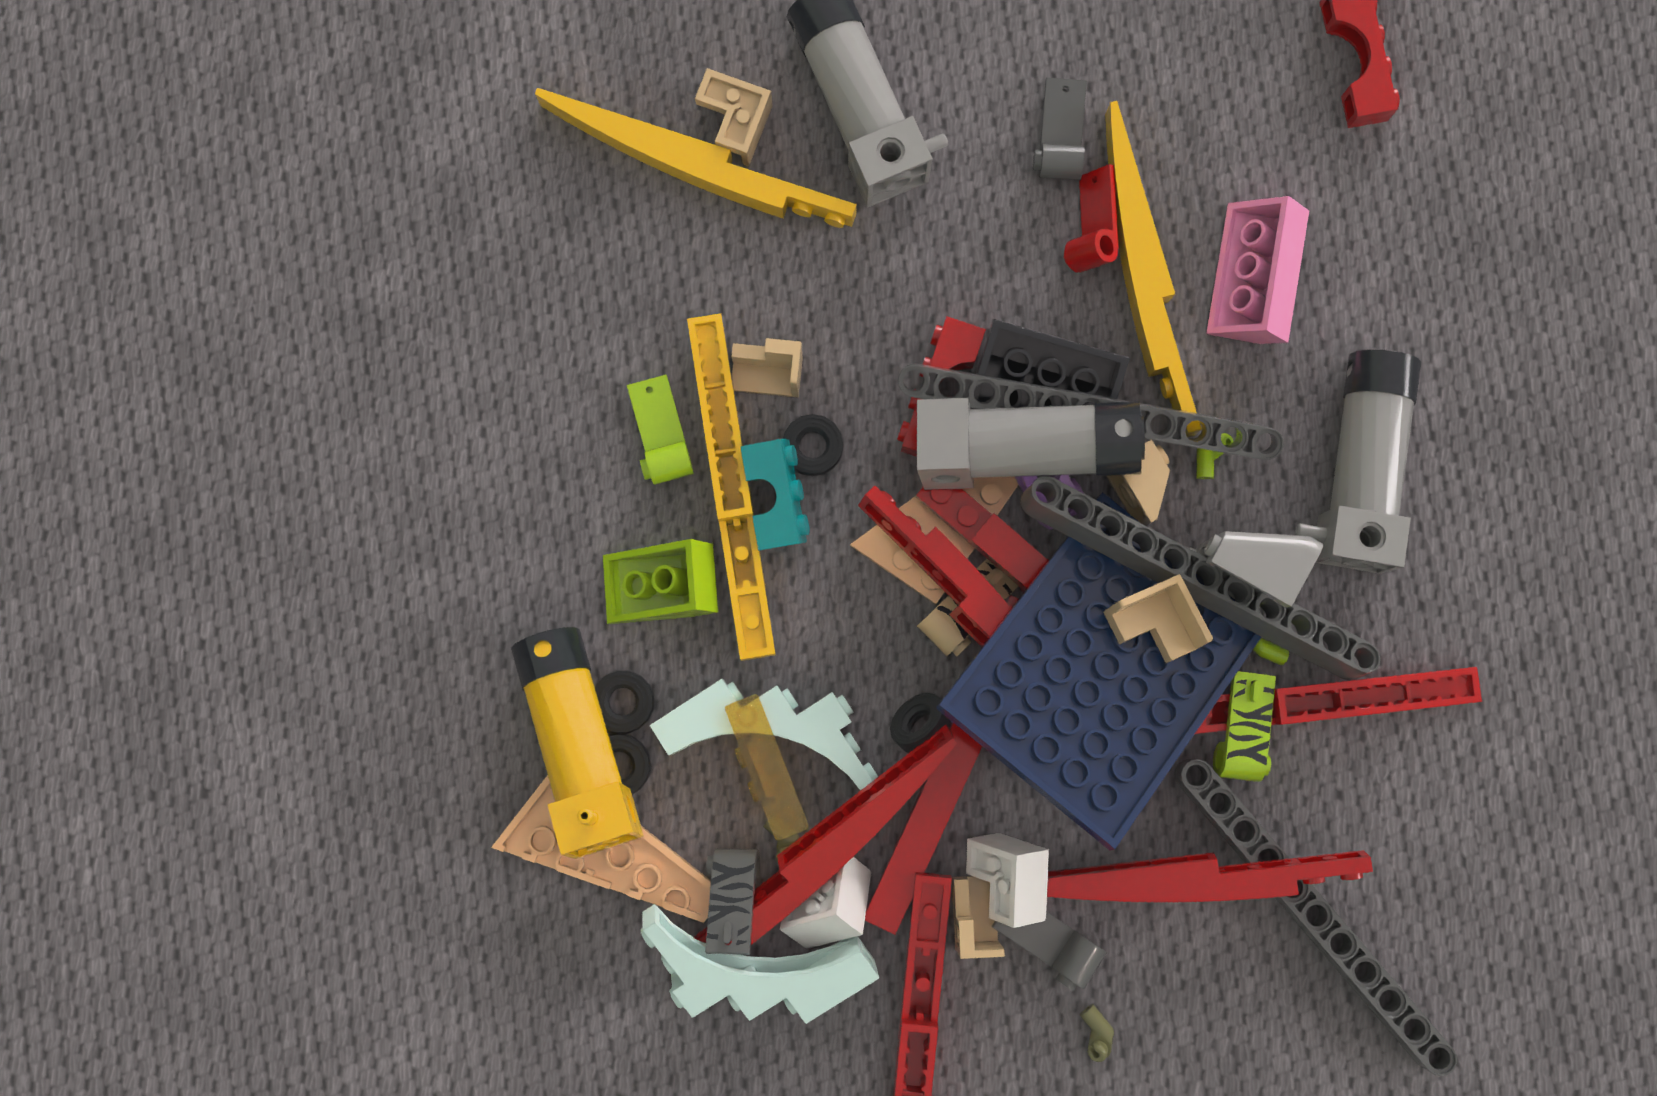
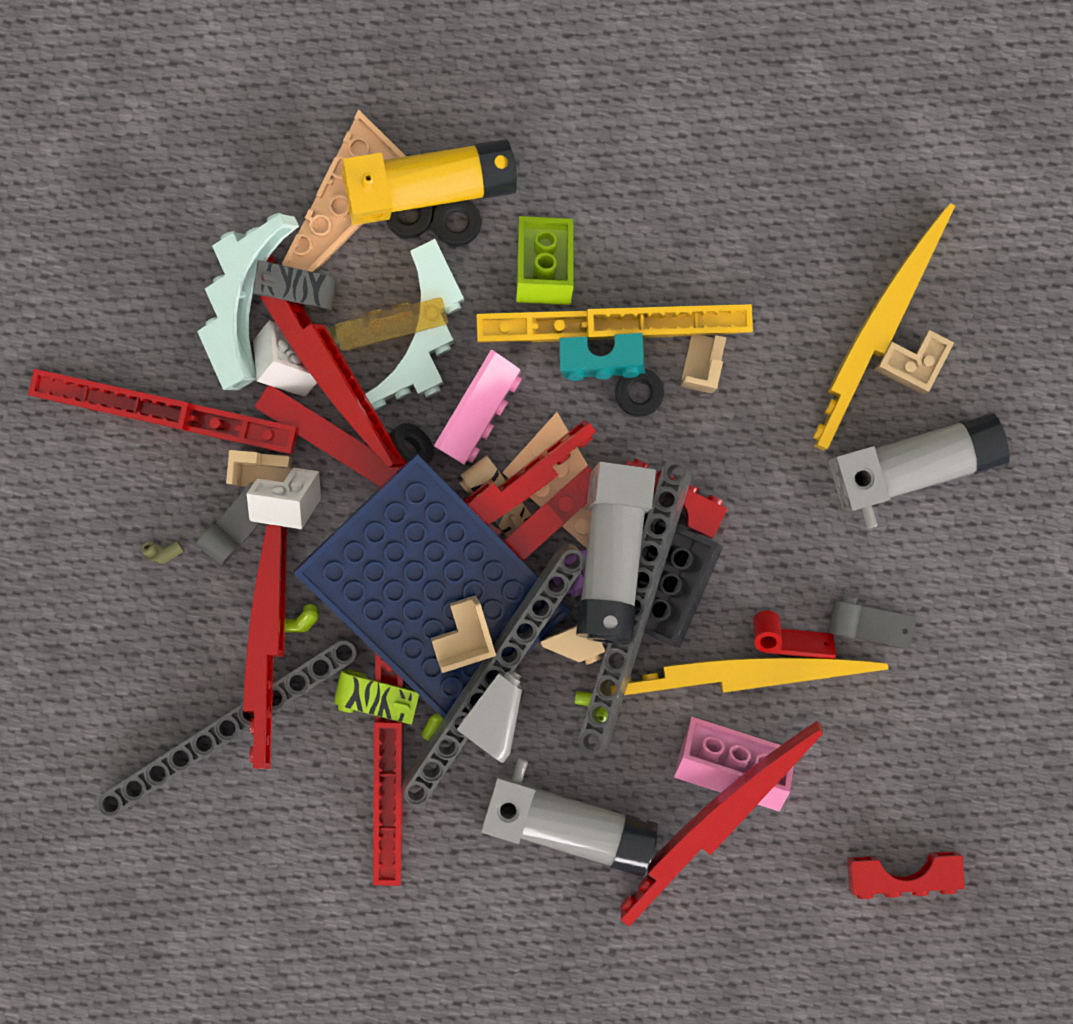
camera: 95 degrees right, 5 degrees up
(660, 431) = (665, 274): lime door -> none
(861, 642) = (477, 409): none -> bright pink slope
(1161, 833) = (304, 621): none -> lime arm
(1335, 275) = (717, 820): none -> red slope

